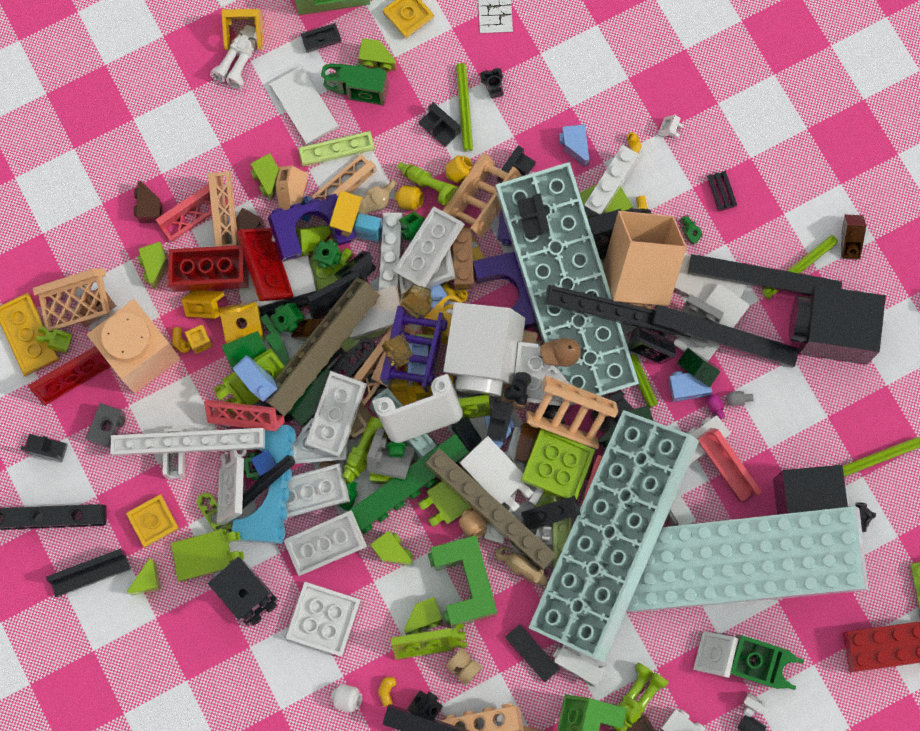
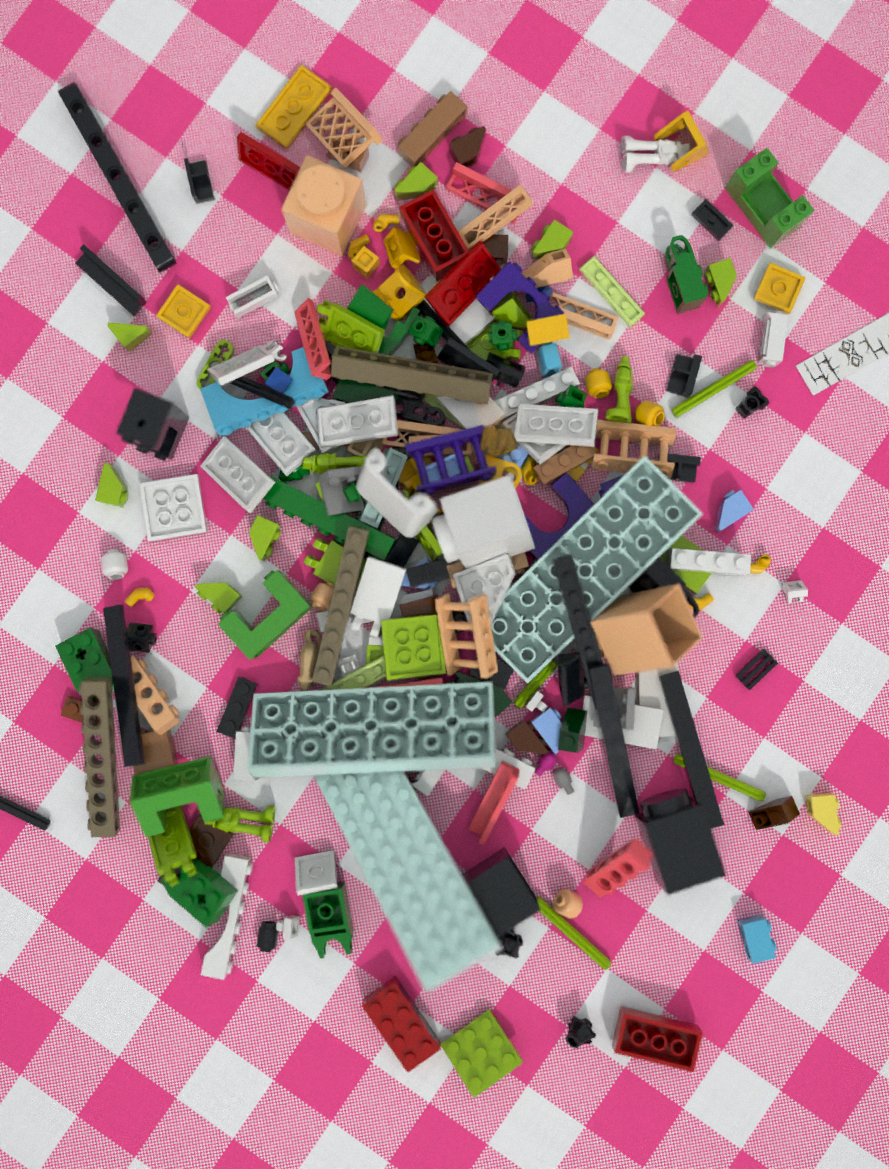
camera: 60 degrees right, 10 degrees up
(57, 340) = (301, 136): lime plate -> none
(104, 415) = (236, 218): dark grey brick -> none
(115, 226) = (432, 129): none -> medium nougat brick
(169, 306) = (384, 220): none -> yellow arm
(188, 442) = (264, 303): white plate -> none
(204, 554) = (175, 373): lime tile -> none
(255, 378) = (349, 331): light blue slope -> none
(277, 665) = (111, 487): none -> lime slope
(304, 105) = (638, 239): white tile -> none
(376, 198) = (579, 353): tan animal -> none
(397, 350) = (437, 447): clear yellow brick -> none
(428, 642) = (196, 612): lime tile -> none
(448, 38) = (773, 339): none -> white window
(463, 666) = (192, 653): tan wheel -> none
(518, 388) = (464, 575): black plate -> none
(533, 216) = (631, 506): black panel -> none
(551, 513) = (366, 662): black plate -> none
(558, 353) = (514, 594): medium nougat cap -> none
(659, 387) = (535, 701): none -> white tile
(686, 412) = (524, 738): none -> reddish brown slope
(688, 227) = (702, 655): green piece -> none
(837, 385) = (618, 868): none -> coral brick
(848, 447) = (568, 903): none -> light nougat head
(870, 195) = (823, 809): none -> light yellow slope

